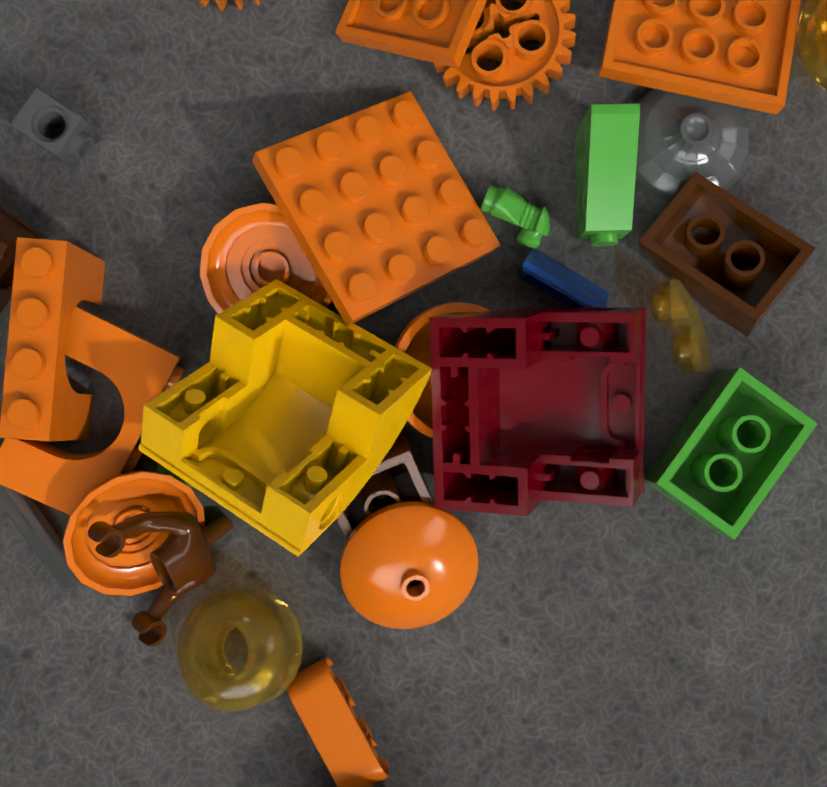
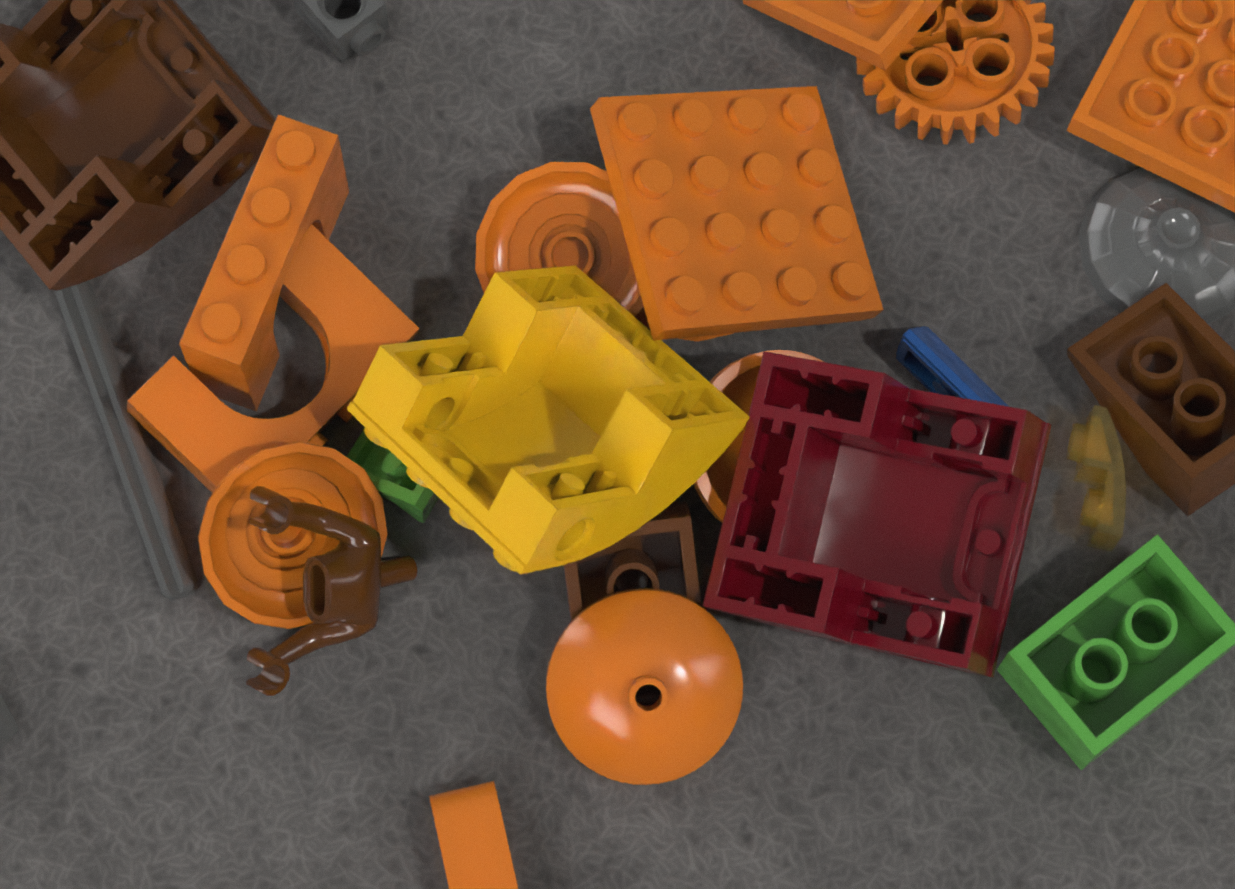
camera: 15 degrees right, 15 degrees down
(272, 644) = (407, 764): clear yellow piece -> none
(513, 208) = (912, 267): bright green arm -> none
(606, 172) = (1044, 252): bright green slope -> none

